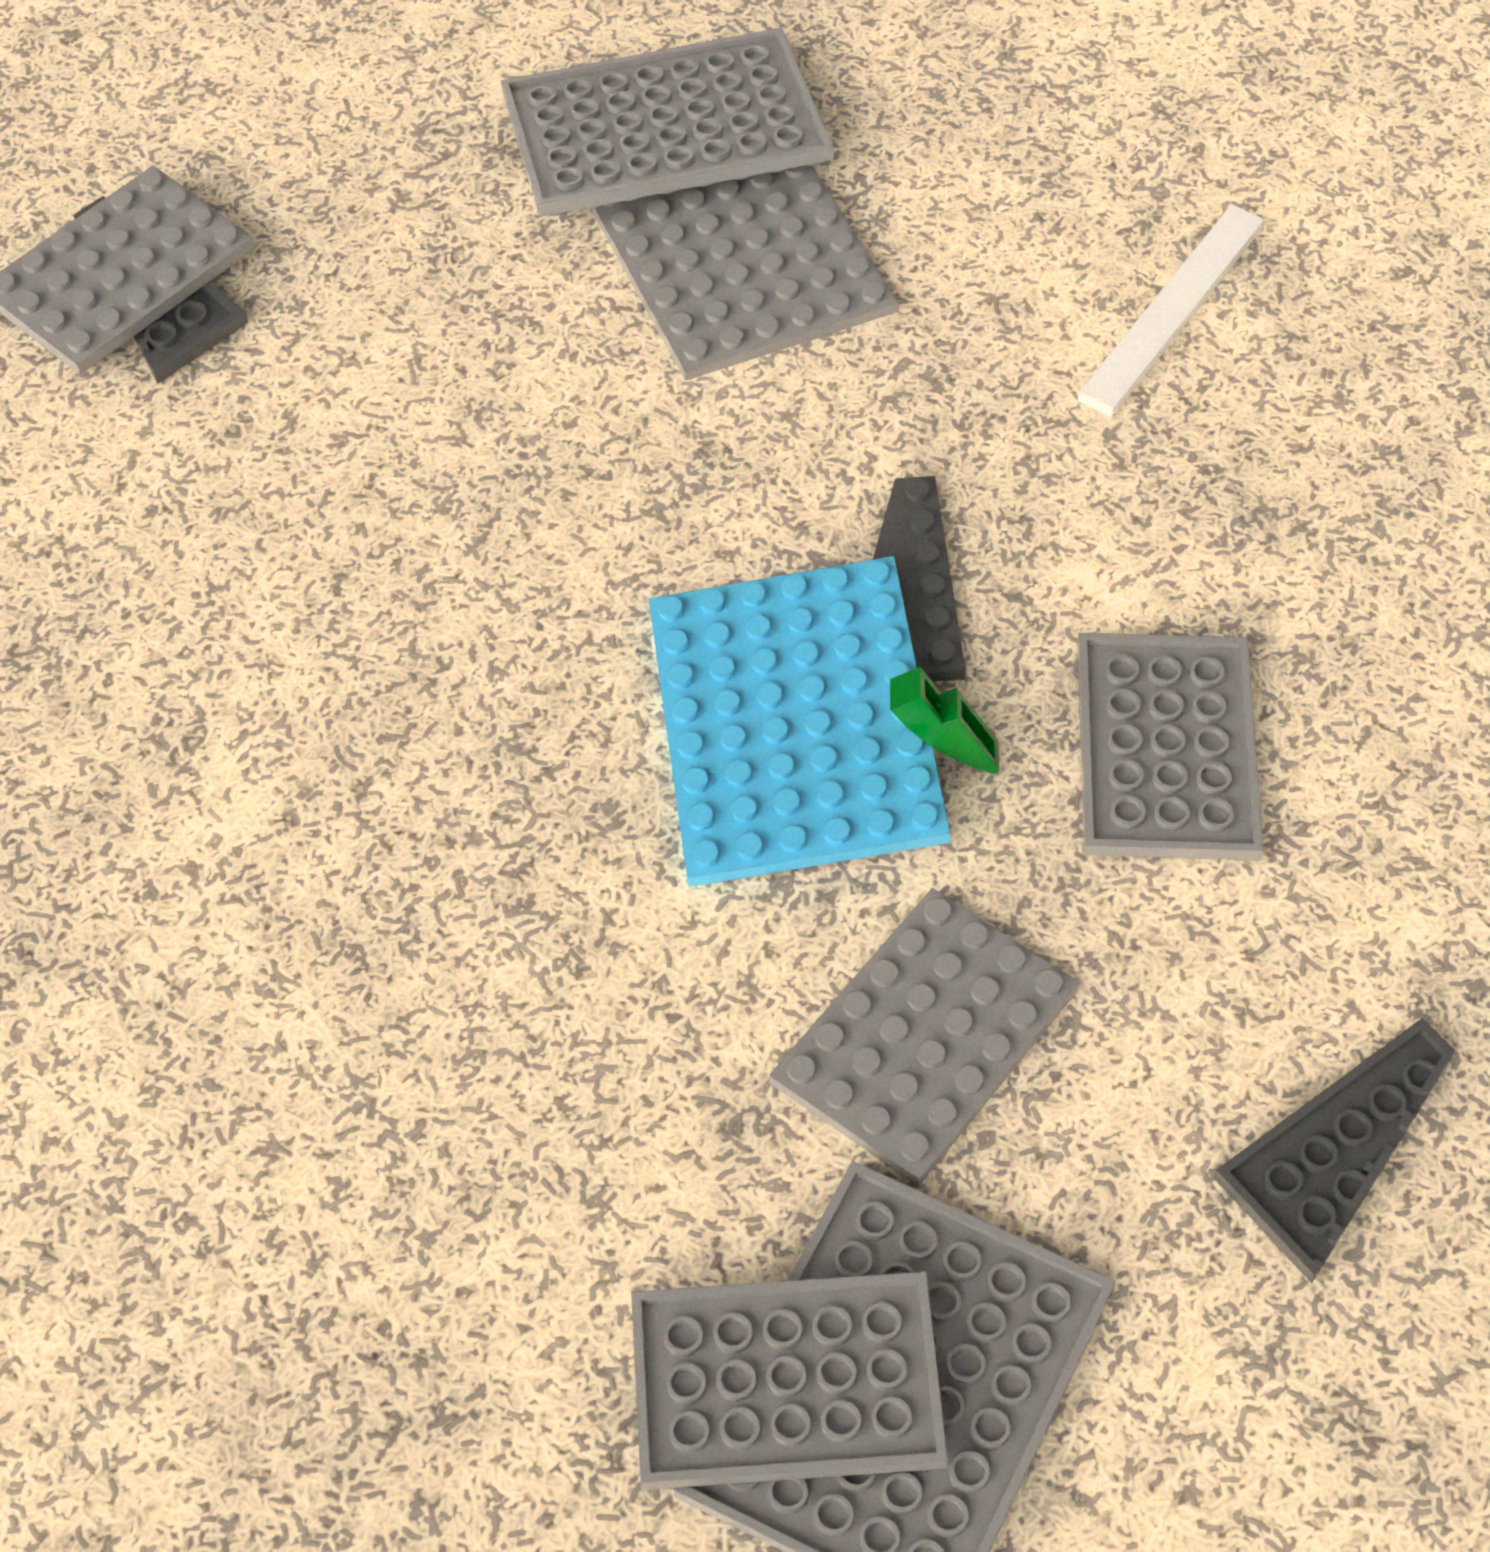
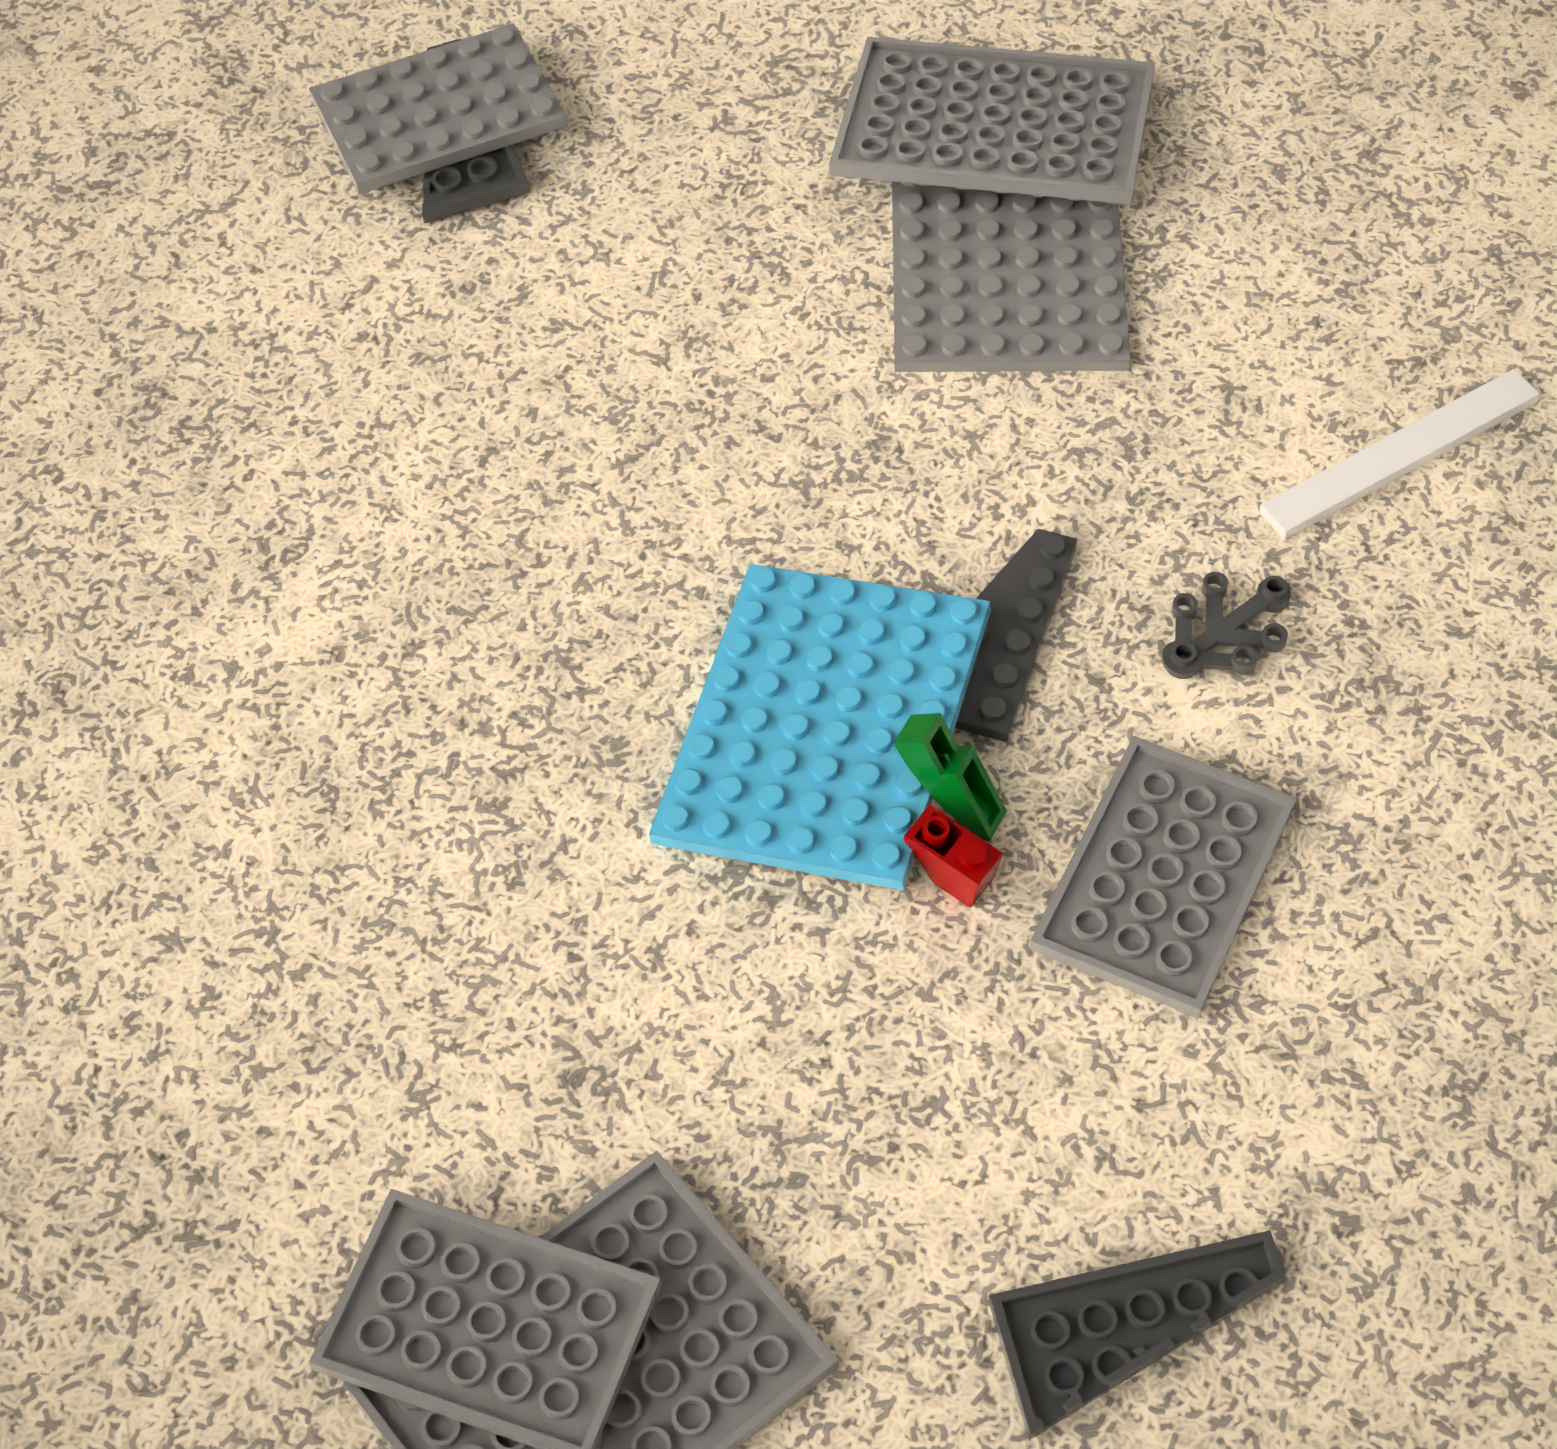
camera: 25 degrees right, 0 degrees up
(924, 1035) = (790, 1061): light grey plate -> none
(981, 795) = (953, 855): none -> red slope
(1104, 514) = (1224, 630): none -> dark grey plant

